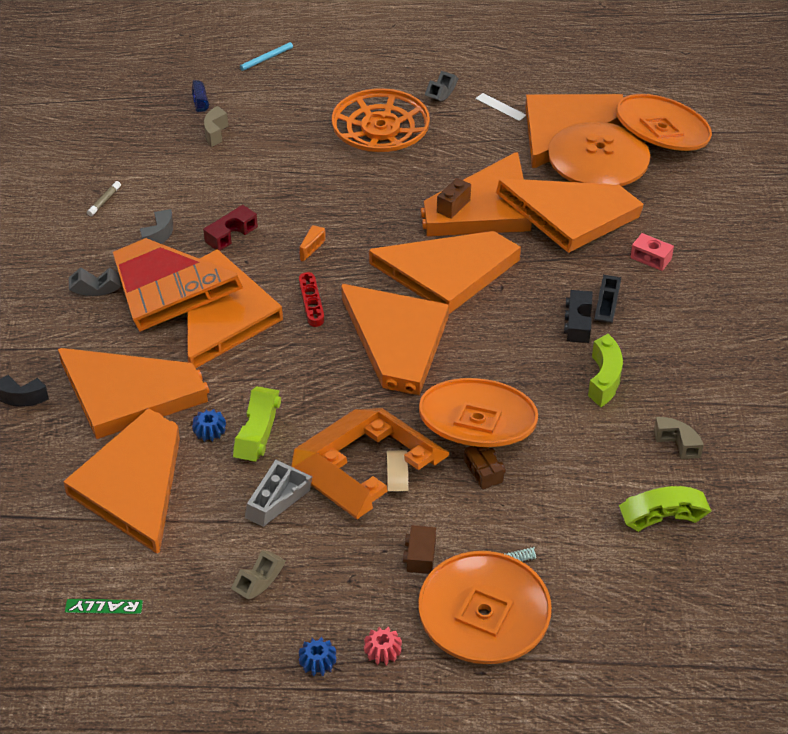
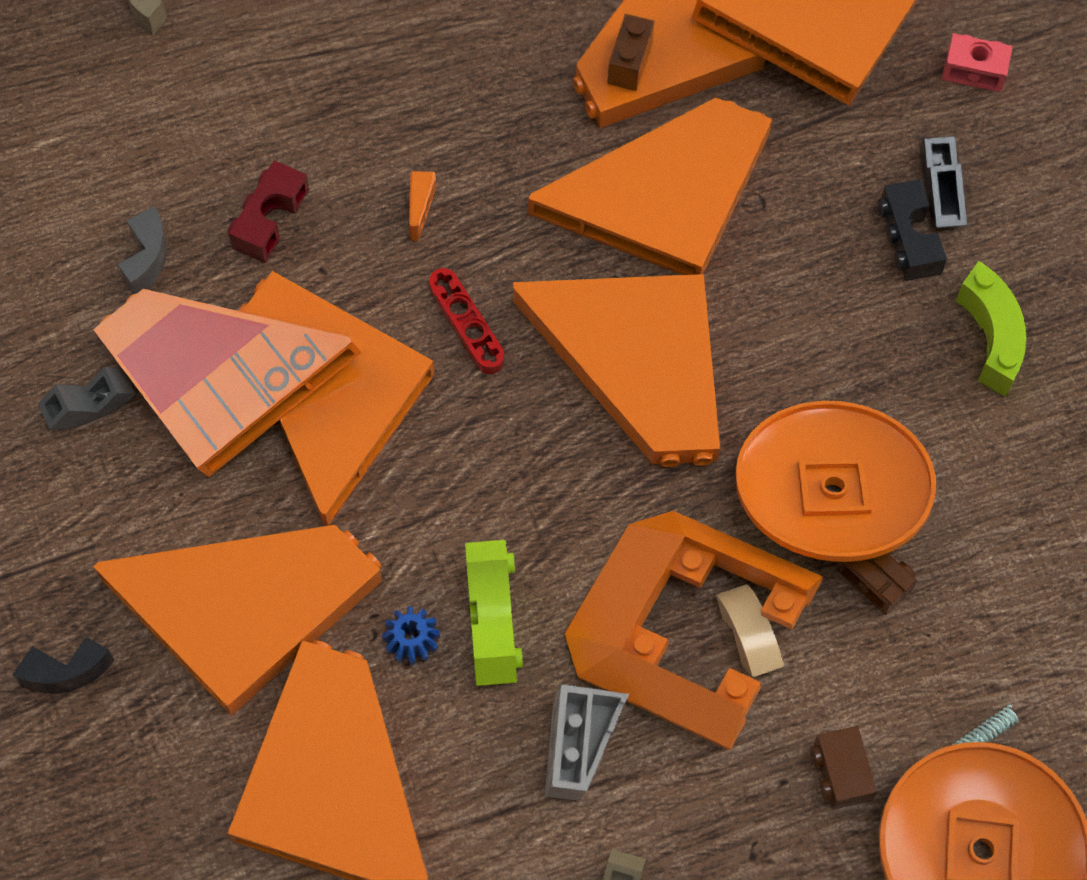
camera: 20 degrees left, 20 degrees up
(103, 198) = (16, 206): dark tan bar -> none

